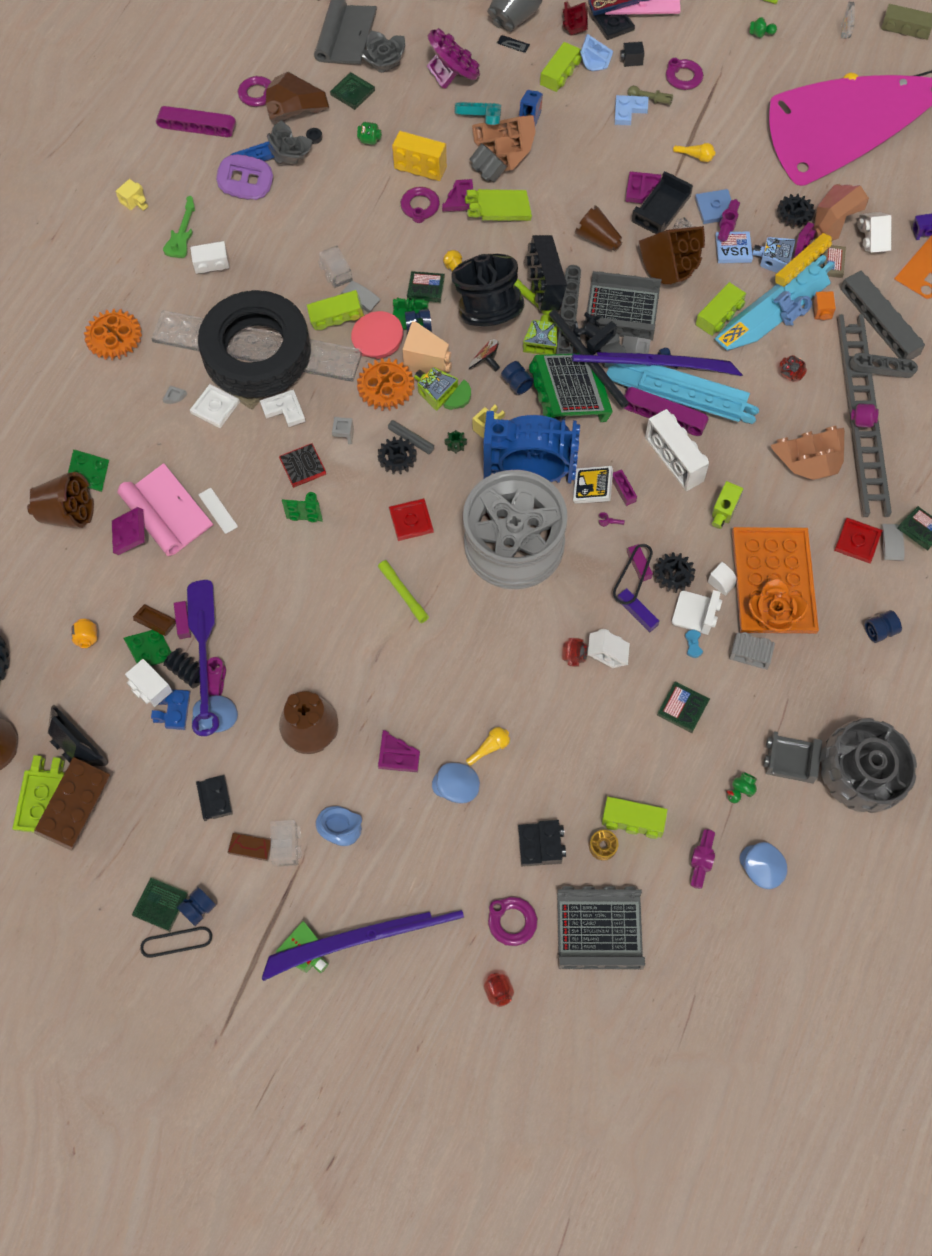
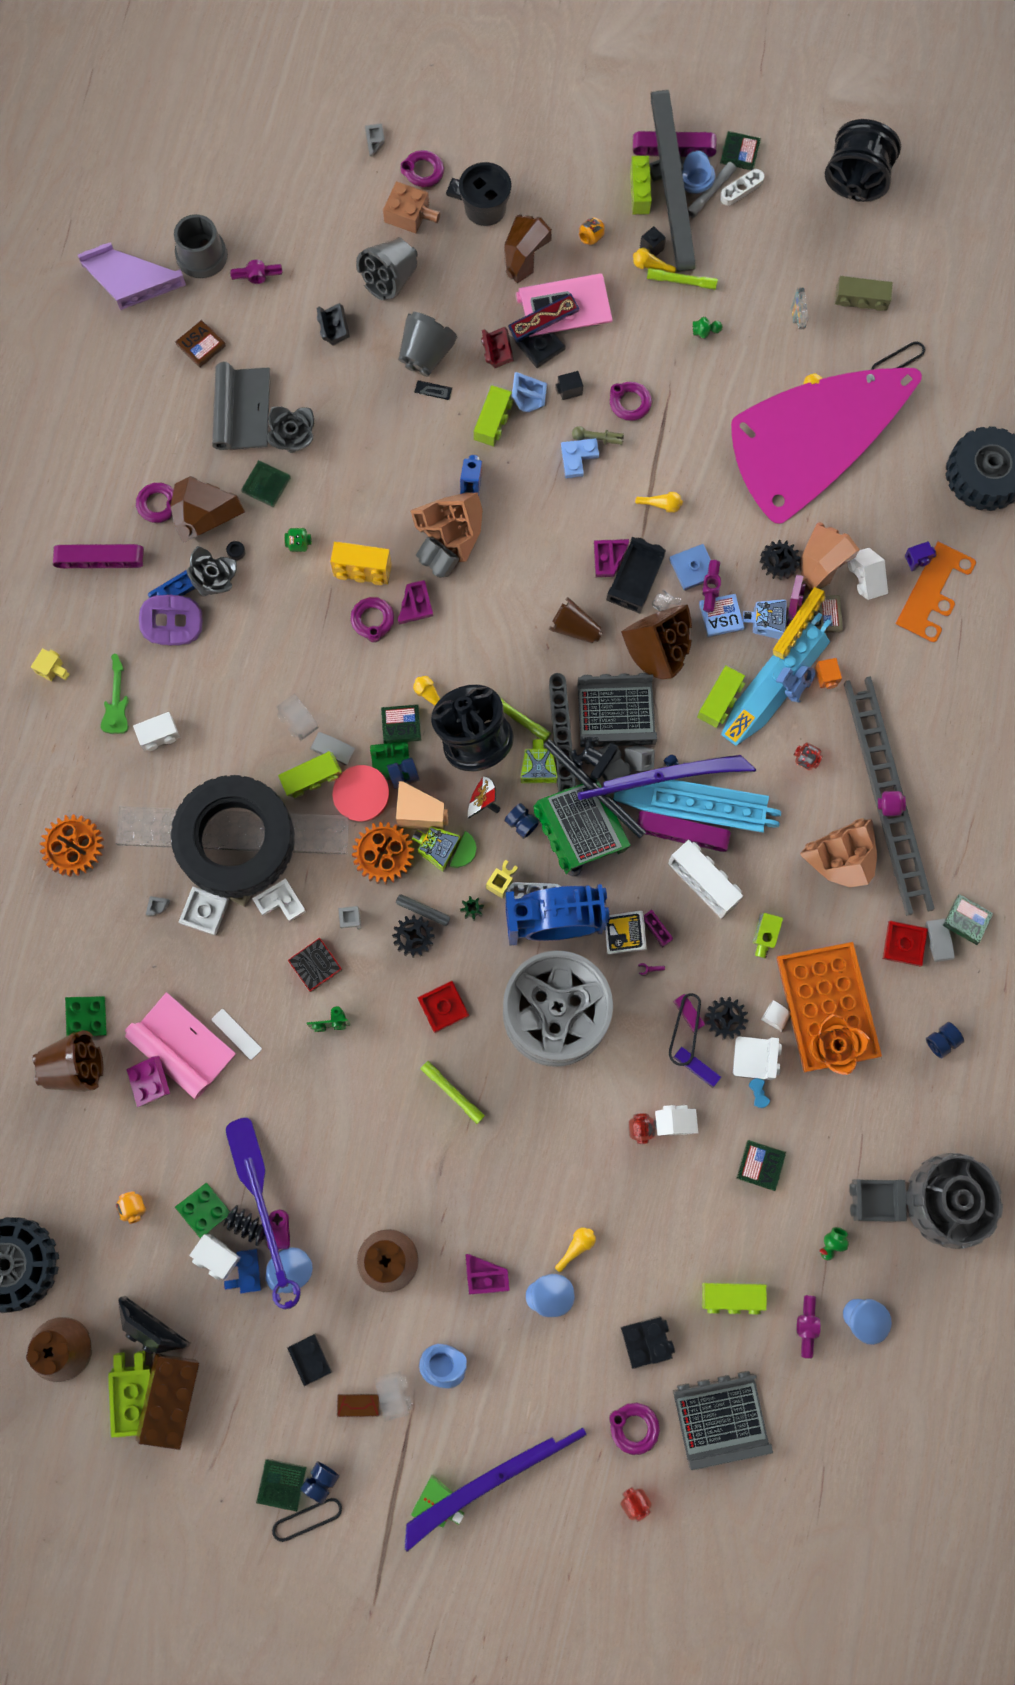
camera: 15 degrees left, 10 degrees up
(154, 620) = (200, 1175): reddish brown tile -> none
(181, 618) = (228, 1167): magenta piece -> none
(450, 59) = (370, 429): magenta bracket -> none
(491, 111) = (426, 484): teal beam -> none
(499, 204) = (461, 607): lime tile -> none
(545, 272) = (529, 691): black brick -> none
(610, 840) = (715, 1337): pearl gold wheel -> none
(752, 650) = (819, 1091): light grey brick -> none
(859, 363) = (900, 733): dark grey beam -> none
(882, 316) = (891, 675): dark grey brick -> none

